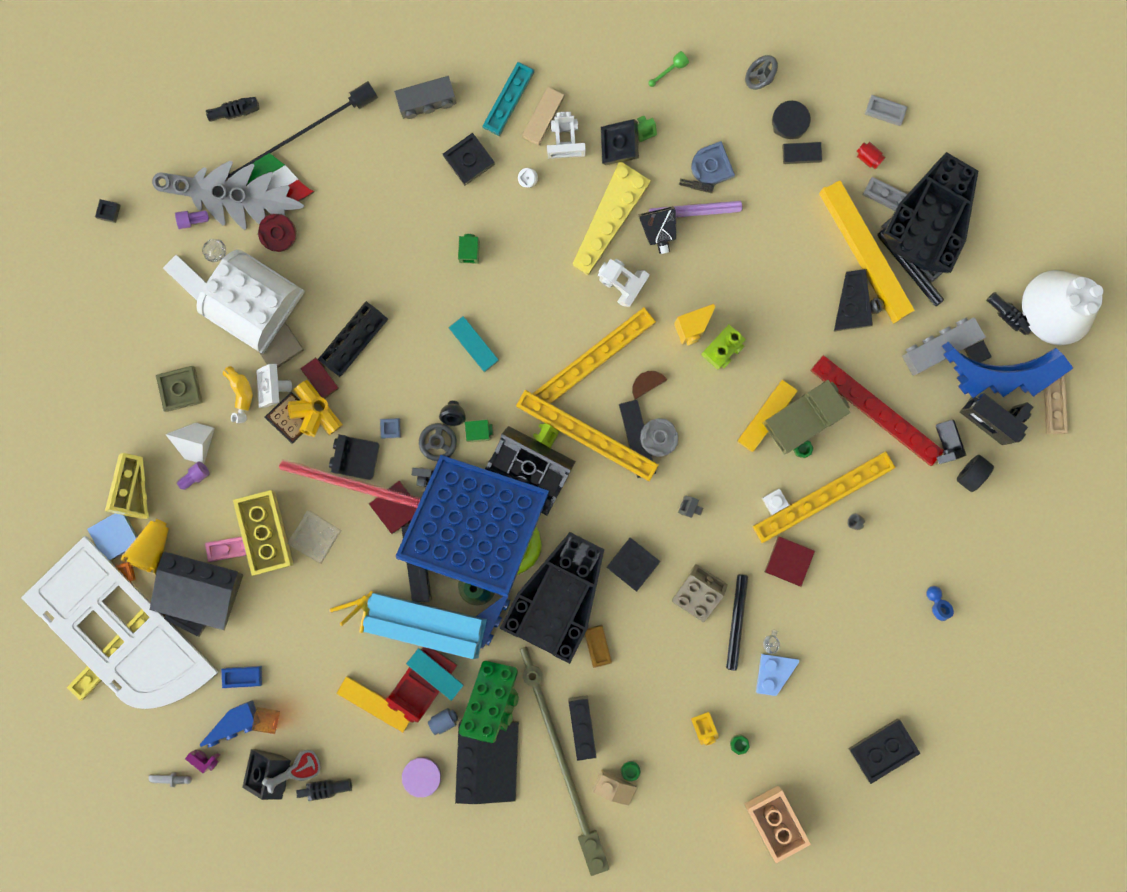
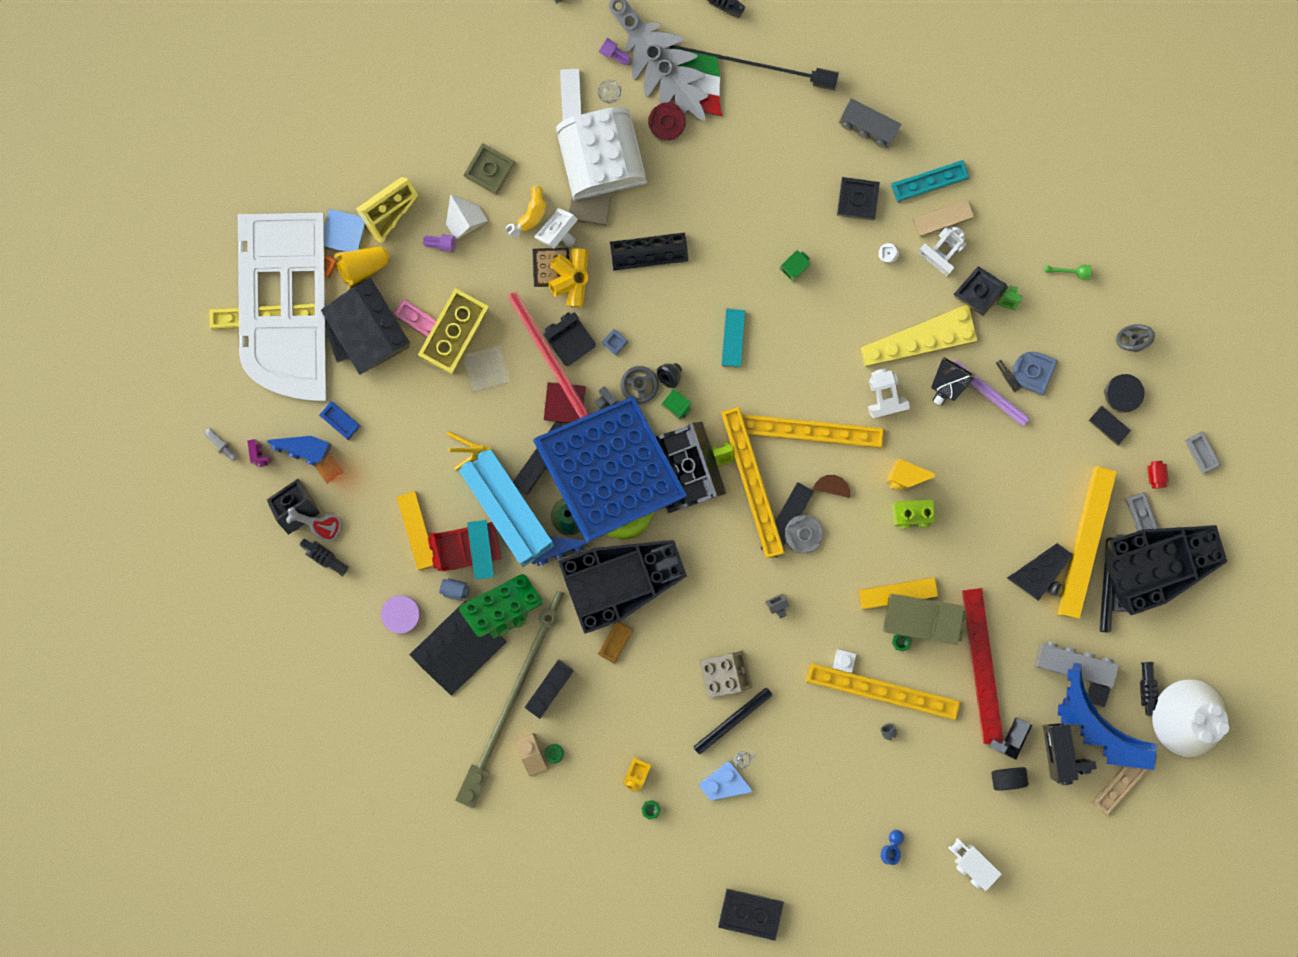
camera: 35 degrees right, 0 degrees up
(319, 378) = (598, 257): dark red tile -> none
(633, 564) = (697, 607): black plate -> none
(777, 824) = (623, 890): light nougat brick -> none
(789, 561) = (813, 713): dark red tile -> none
(1010, 559) = (975, 865): none -> white brick

